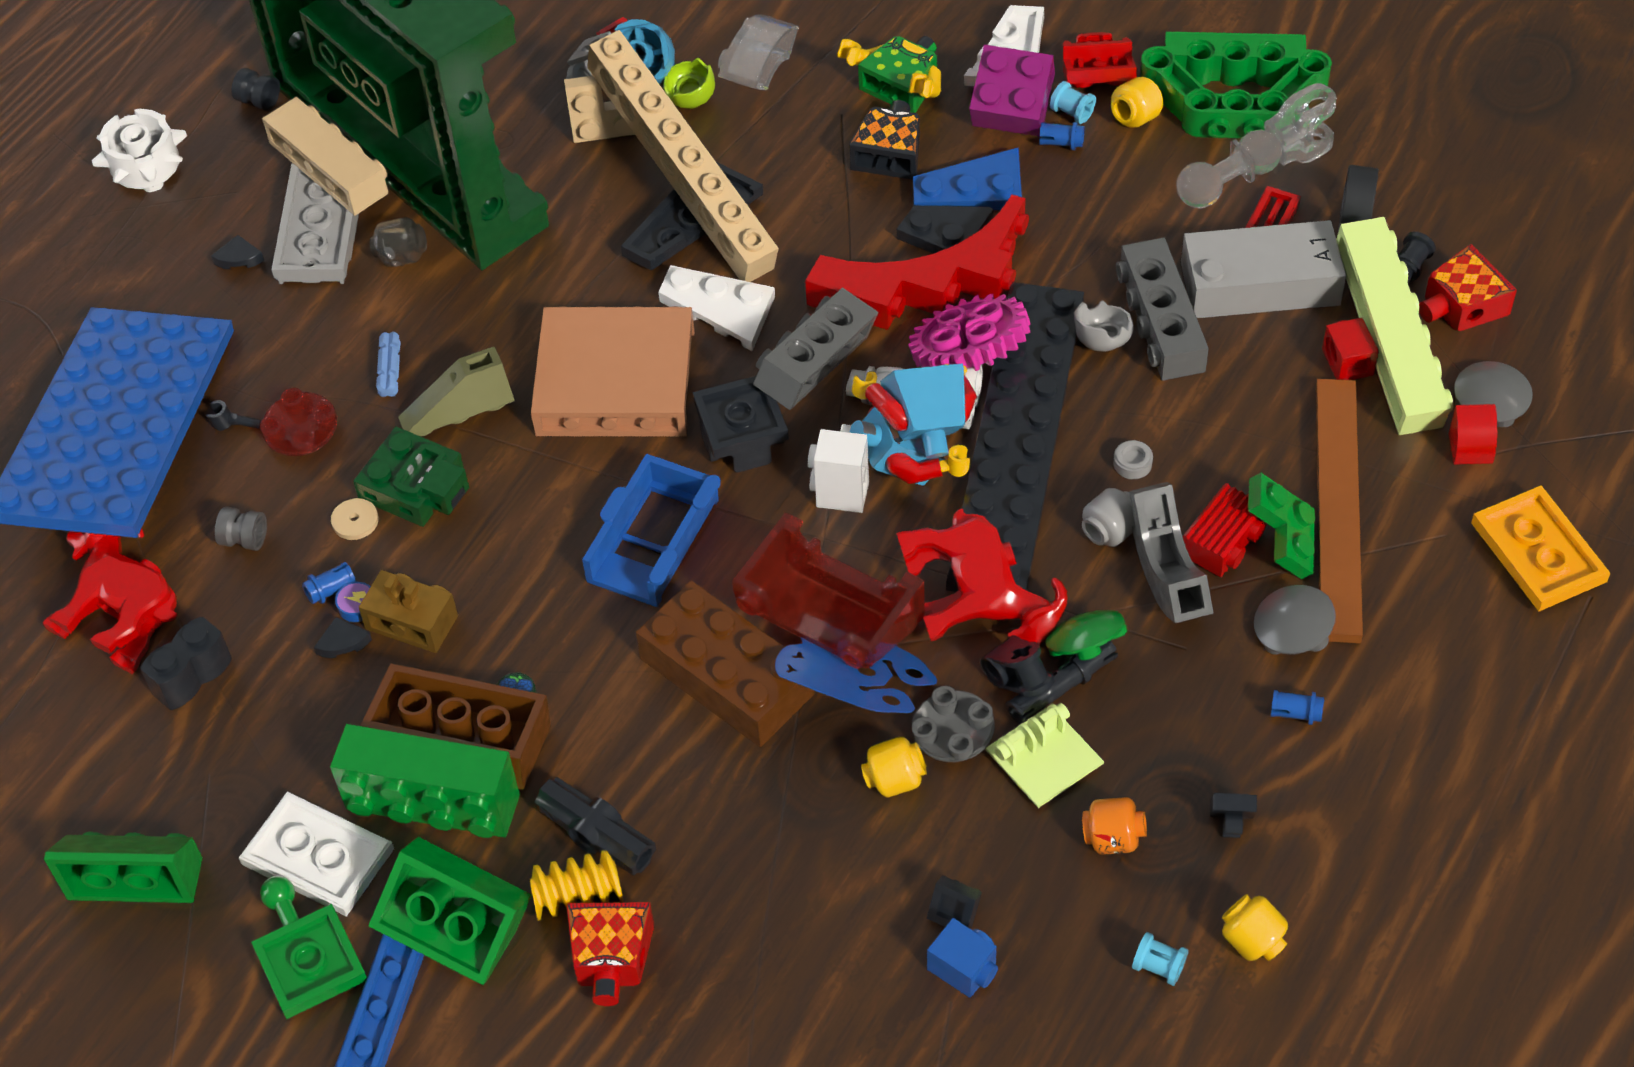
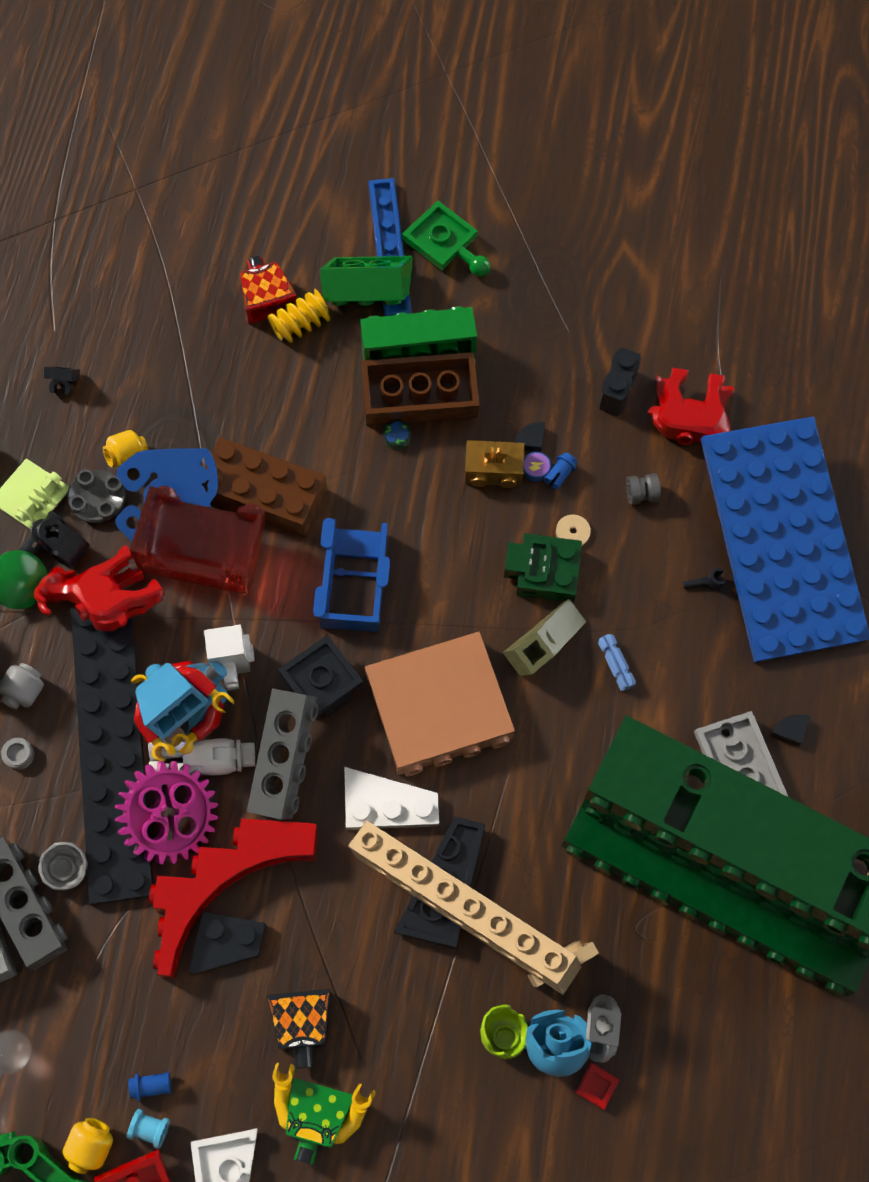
camera: 155 degrees right, 15 degrees up
(126, 867) = (576, 244): green slope -> none
(299, 423) = (653, 588): clear red dish -> none
(317, 853) = (487, 296): white tile -> none
(595, 825) = (305, 359): black piece -> none
(757, 51) = (456, 1093): clear brick -> none
(963, 958) = (48, 344): blue brick -> none
(973, 183) = (212, 1002): blue wing -> none
(1012, 90) = (201, 1109): magenta brick -> none

